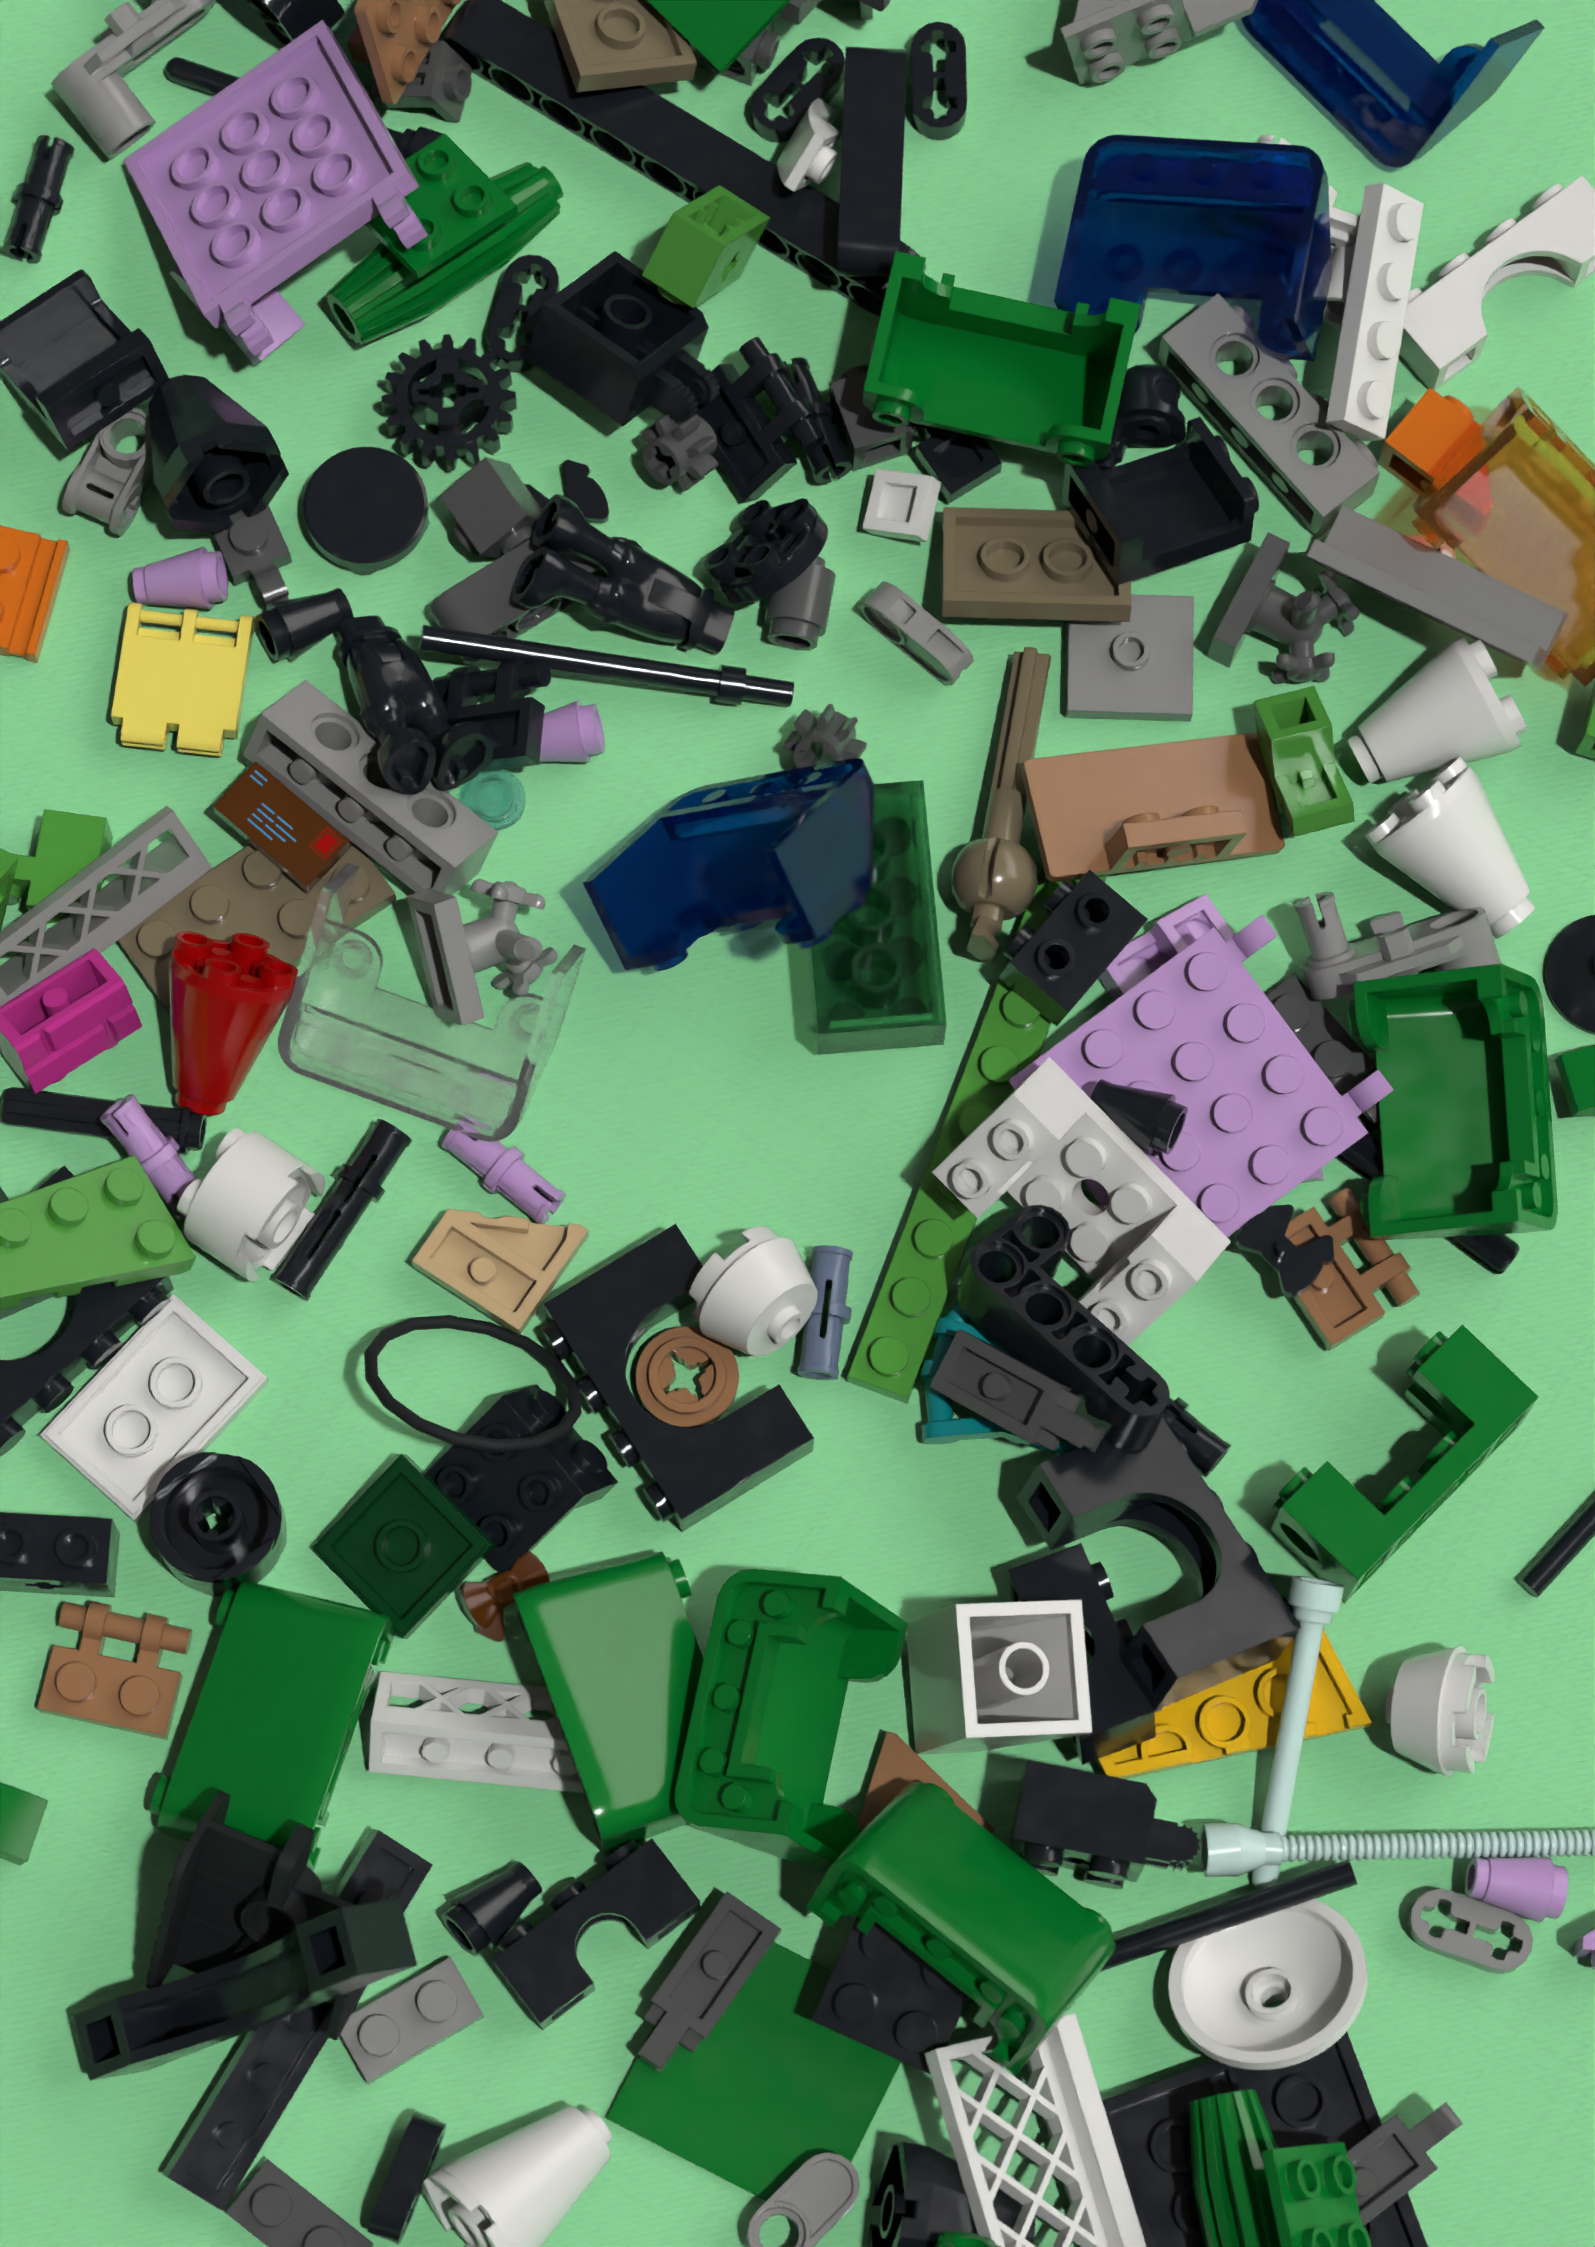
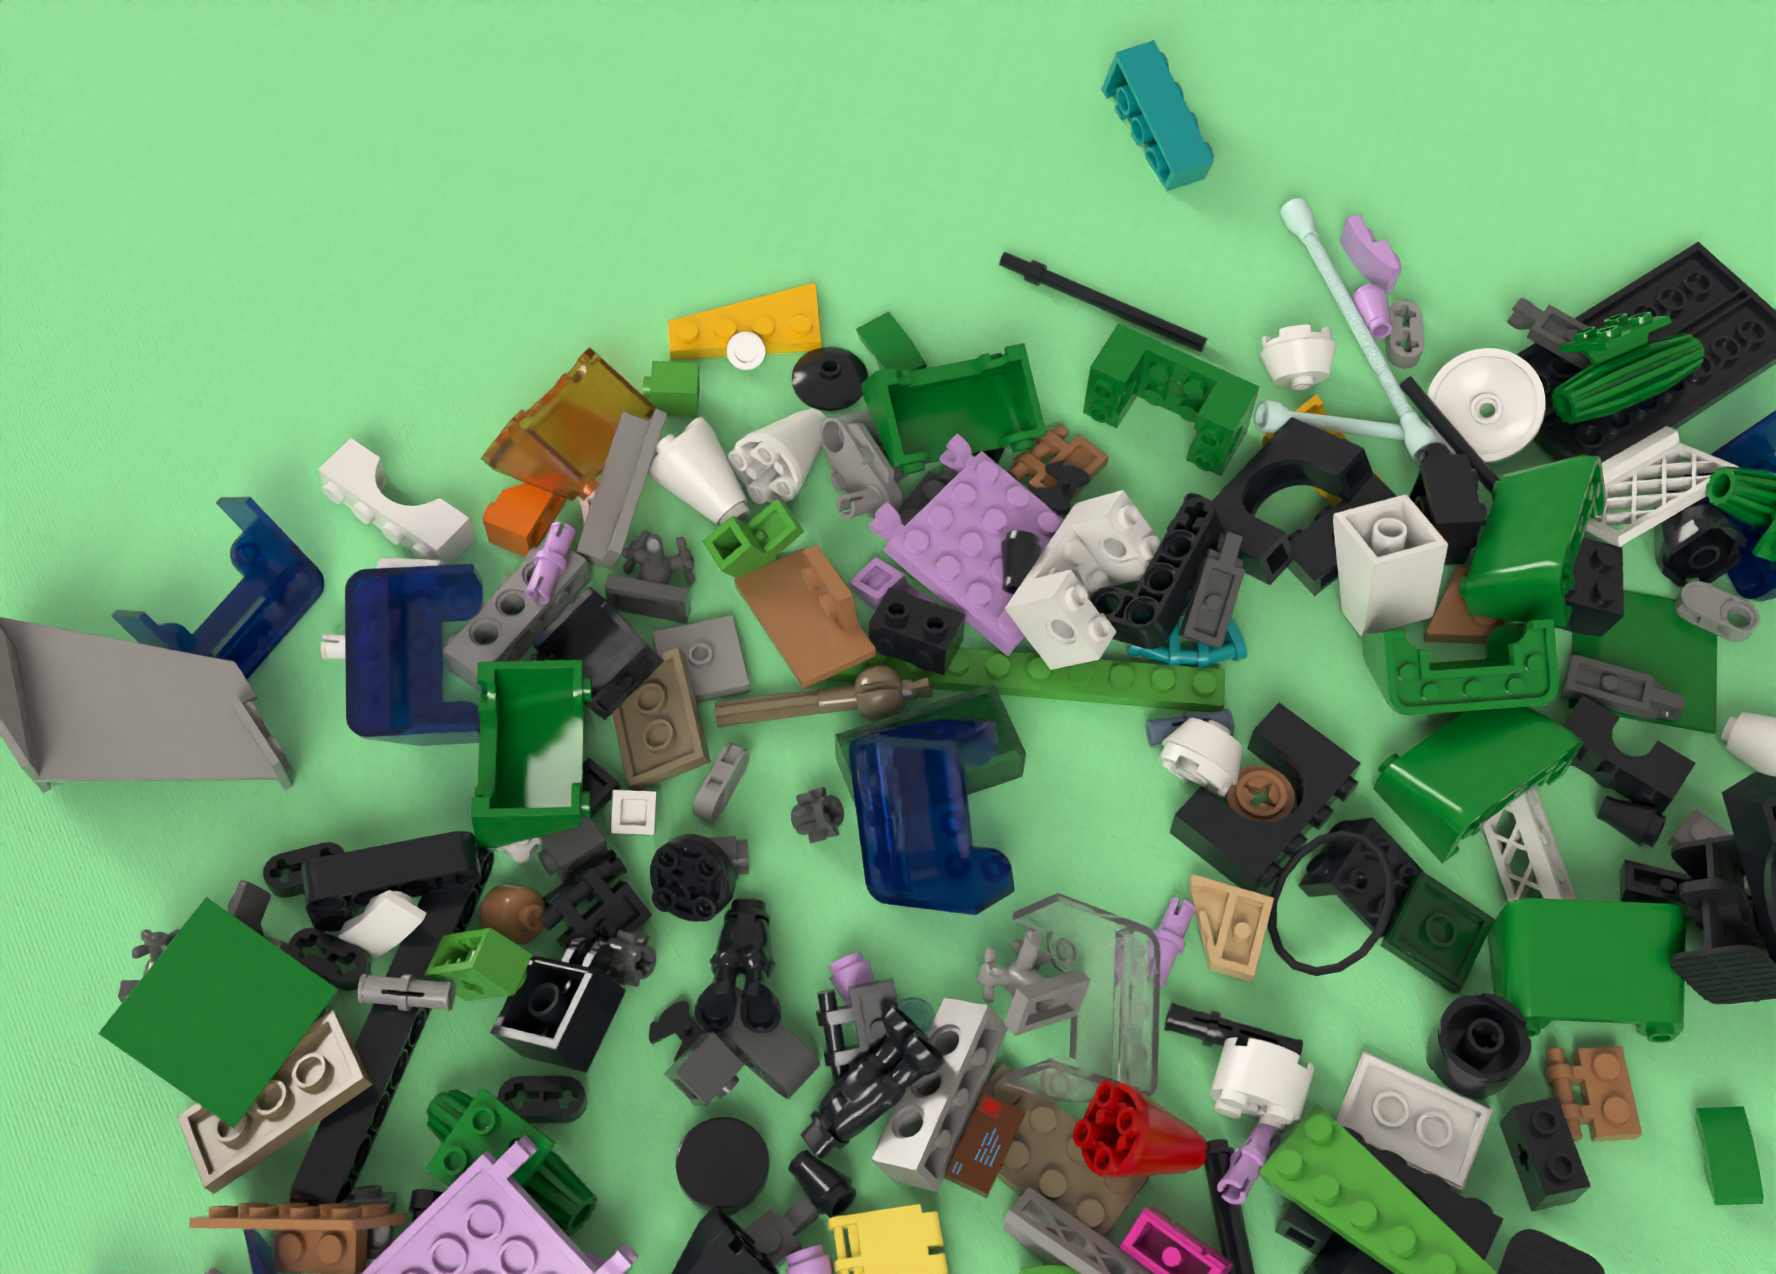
camera: 105 degrees left, 15 degrees down
(425, 402) = (609, 1131): black gear -> none
(486, 1601) = (1449, 876): reddish brown piece -> none
(696, 152) = (376, 990): none -> light grey pin
(727, 684) = (789, 892): black bar -> none
(787, 315) = (513, 912): none -> medium nougat head
(1320, 458) = (550, 562): none -> lavender pin
(1374, 312) = (424, 551): white plate -> none

